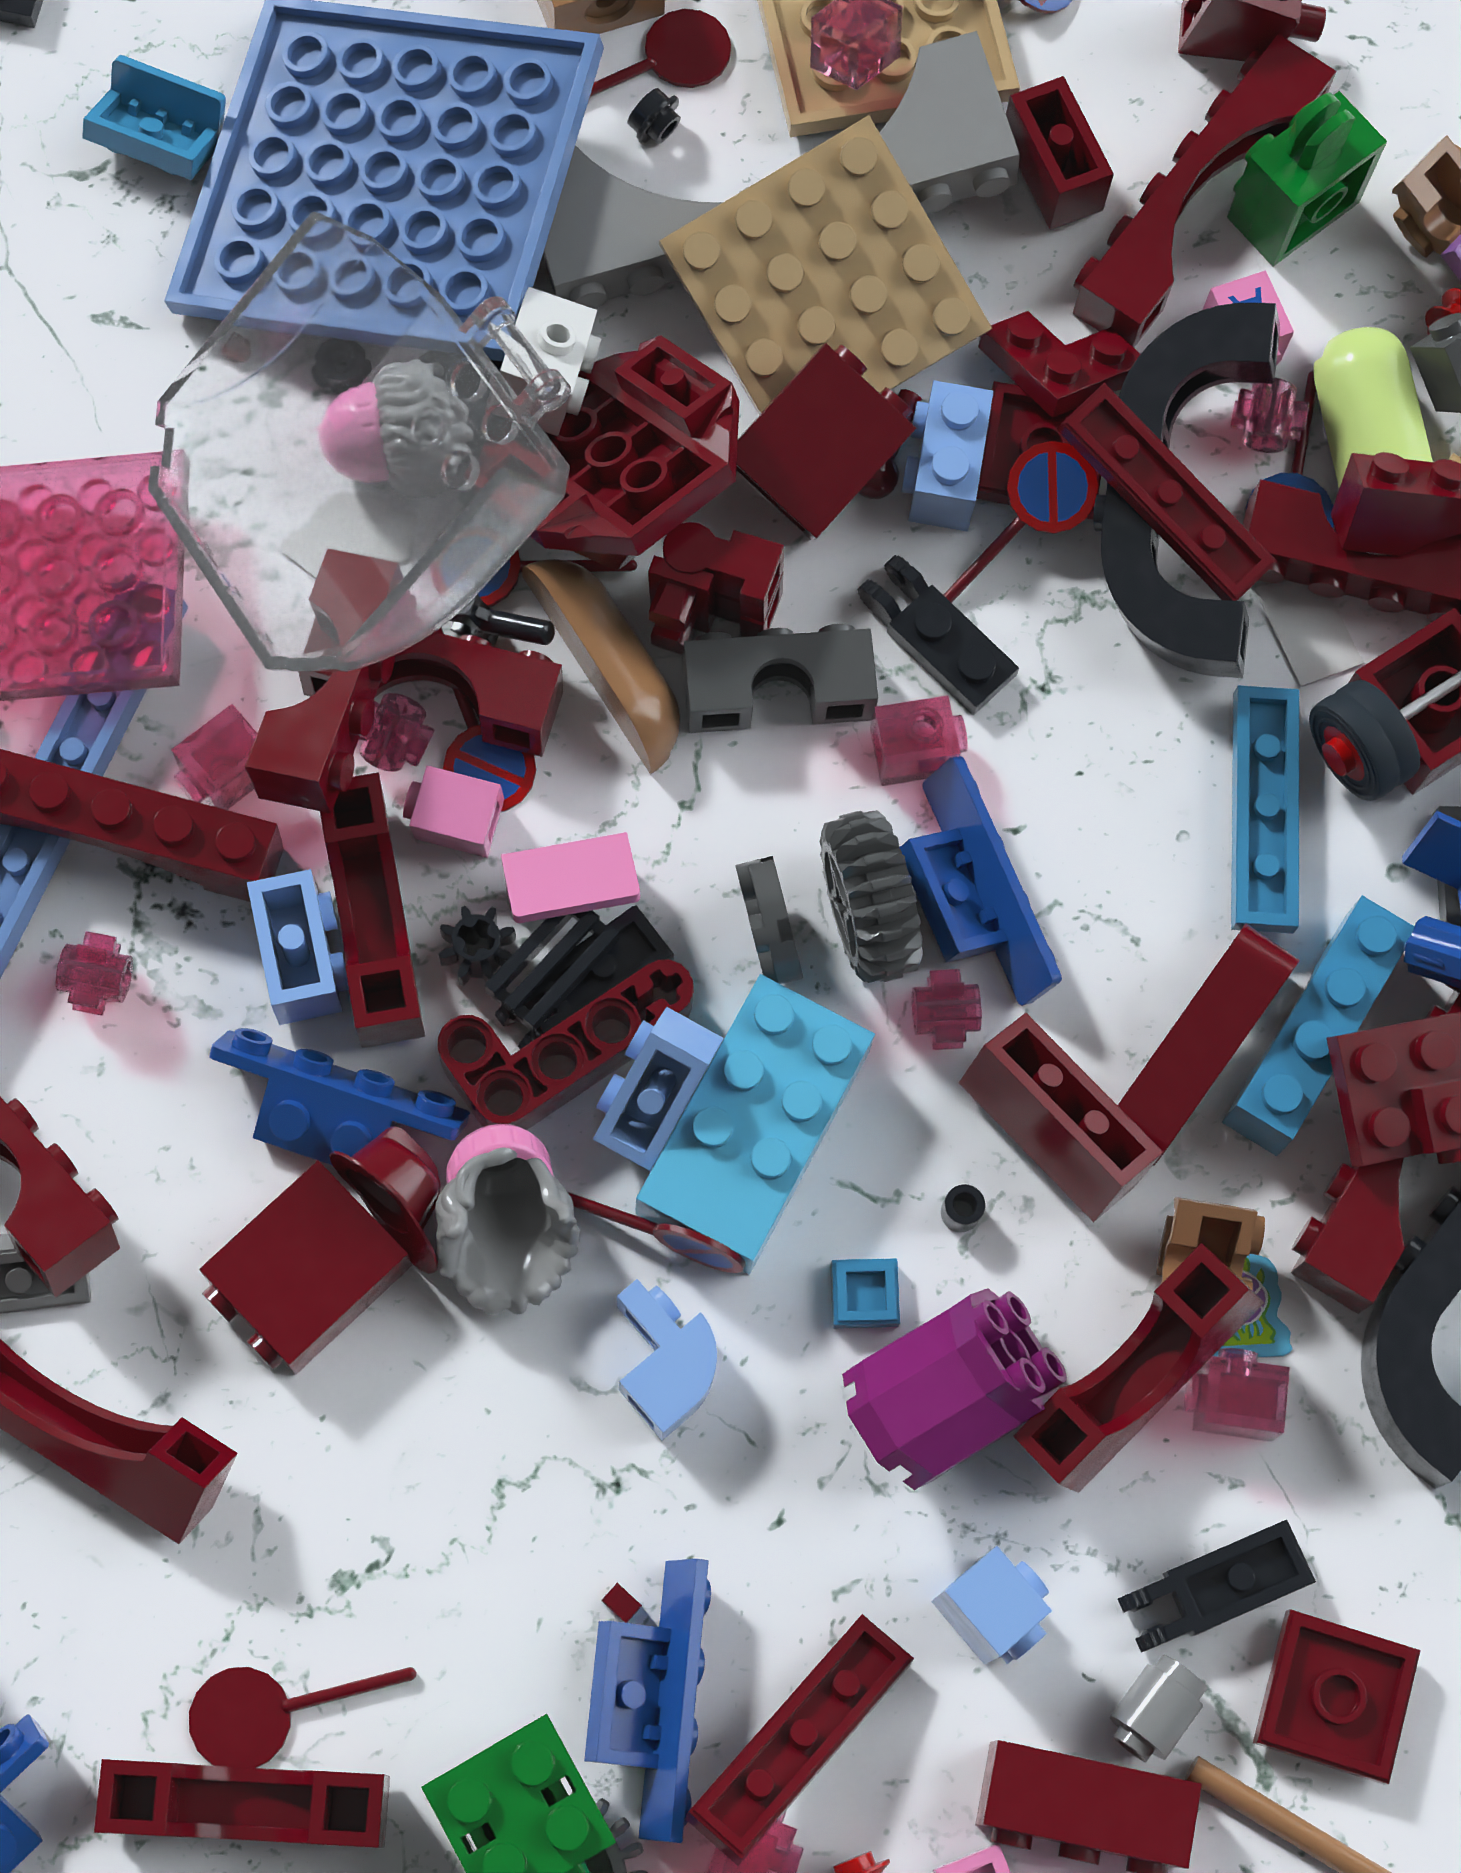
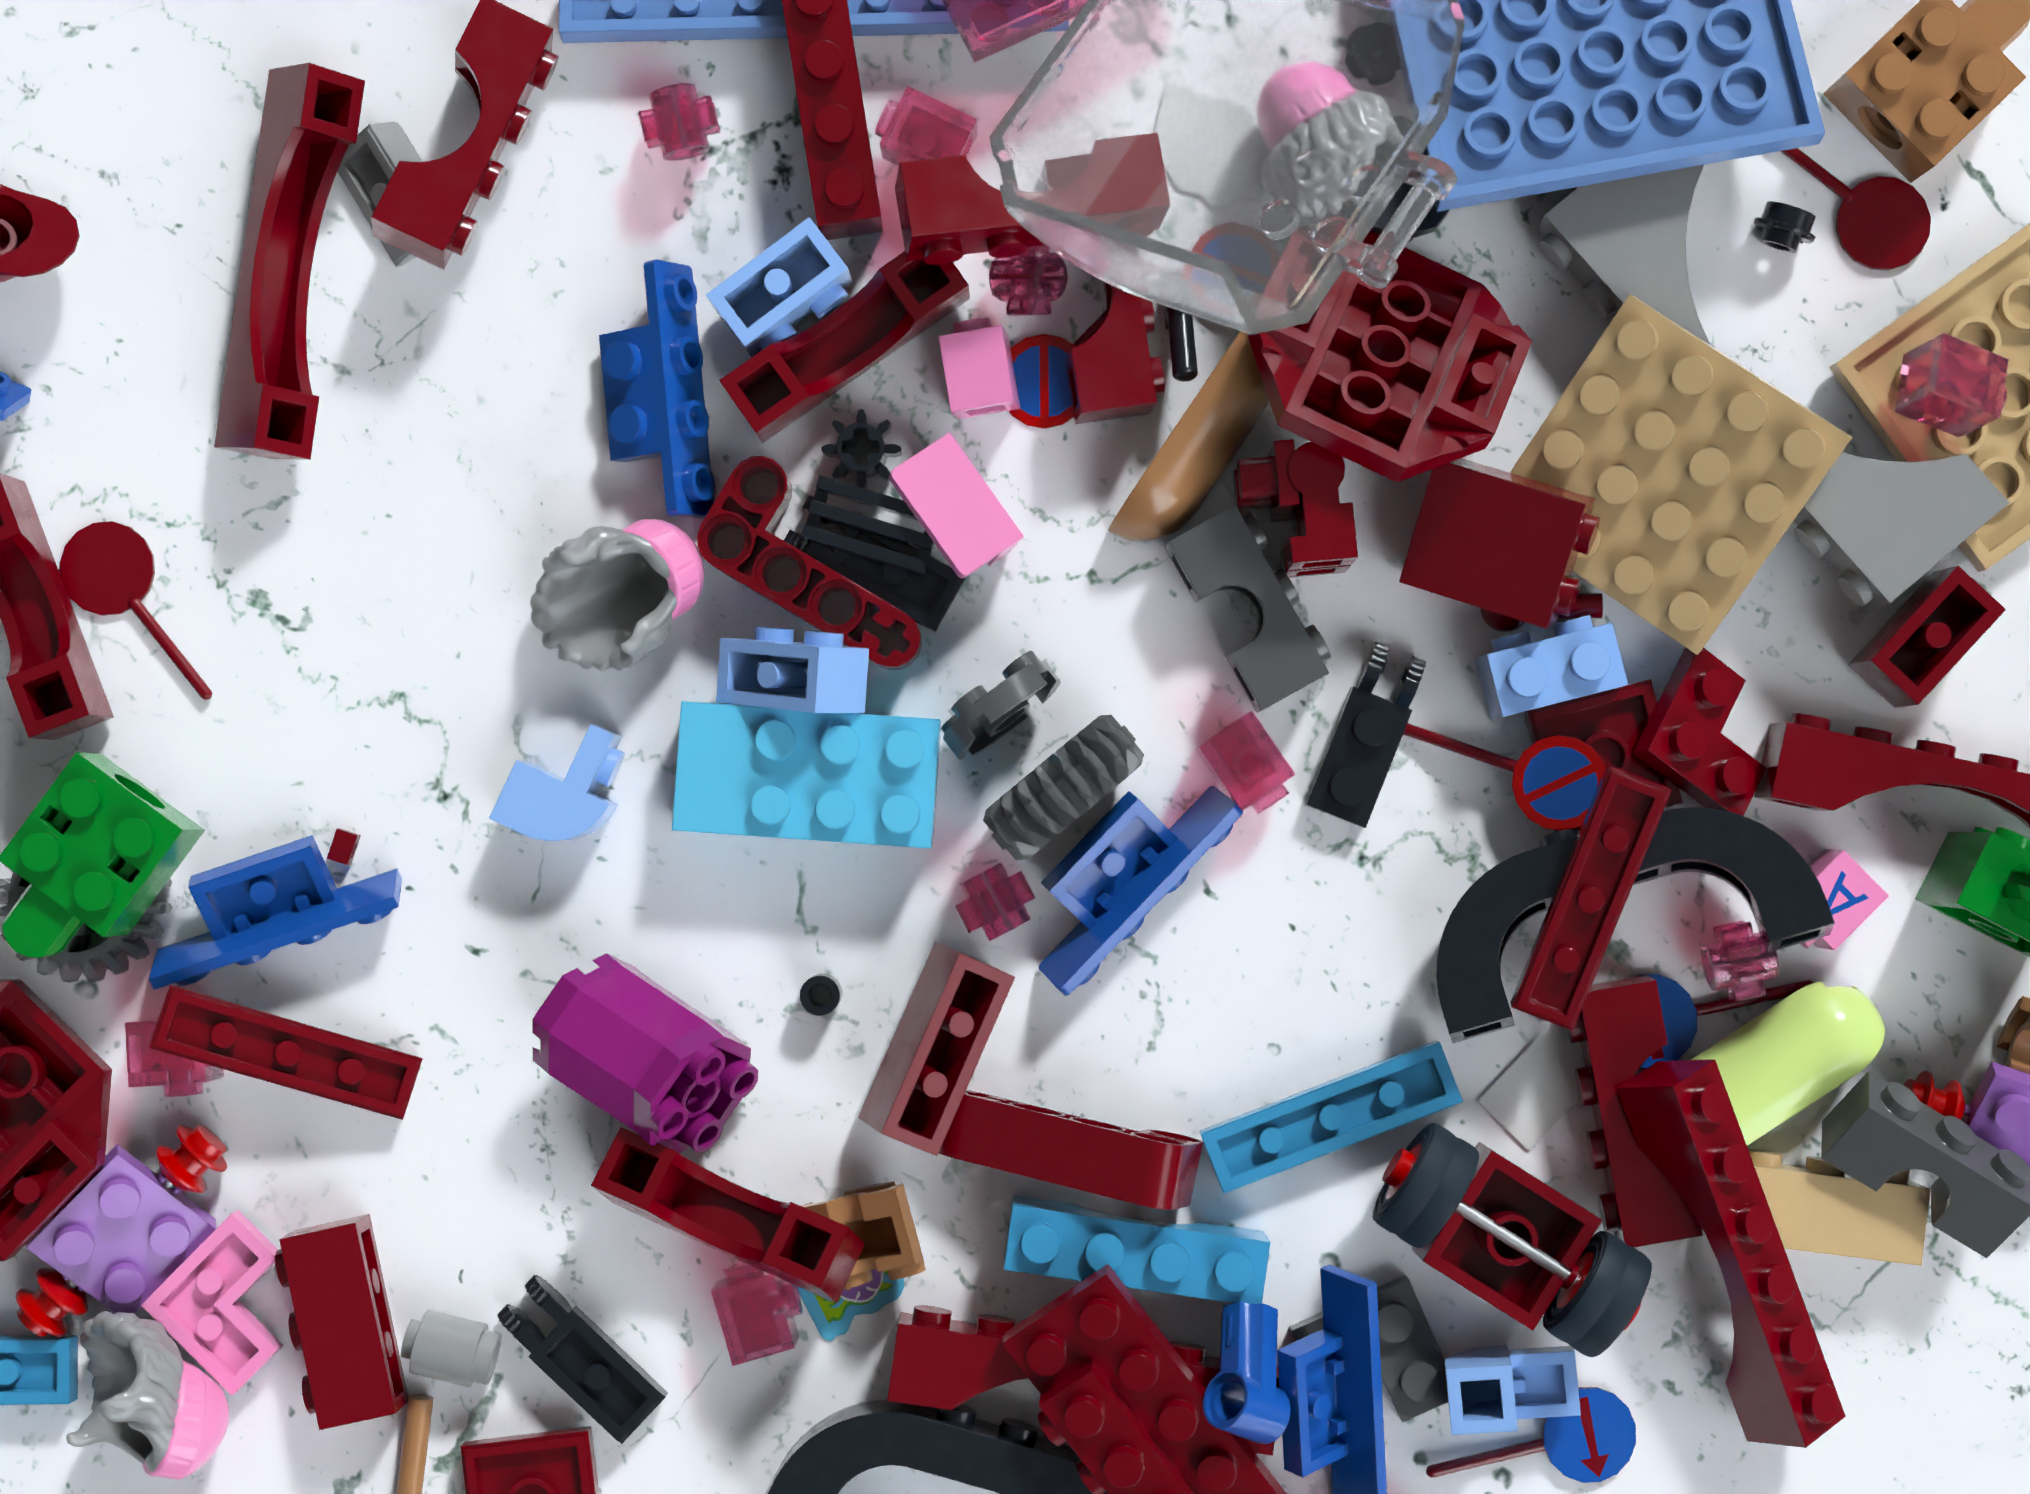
camera: 70 degrees right, 15 degrees up
(304, 1269) = (500, 437): dark red brick -> none
(398, 1189) = (608, 484): dark red piece -> none
(563, 340) = (1462, 241): white brick -> none
(678, 1239) = (673, 717): piece -> none
(865, 1293) = (706, 939): dark azure tile -> none
(996, 1607) = (465, 1172): light blue brick -> none

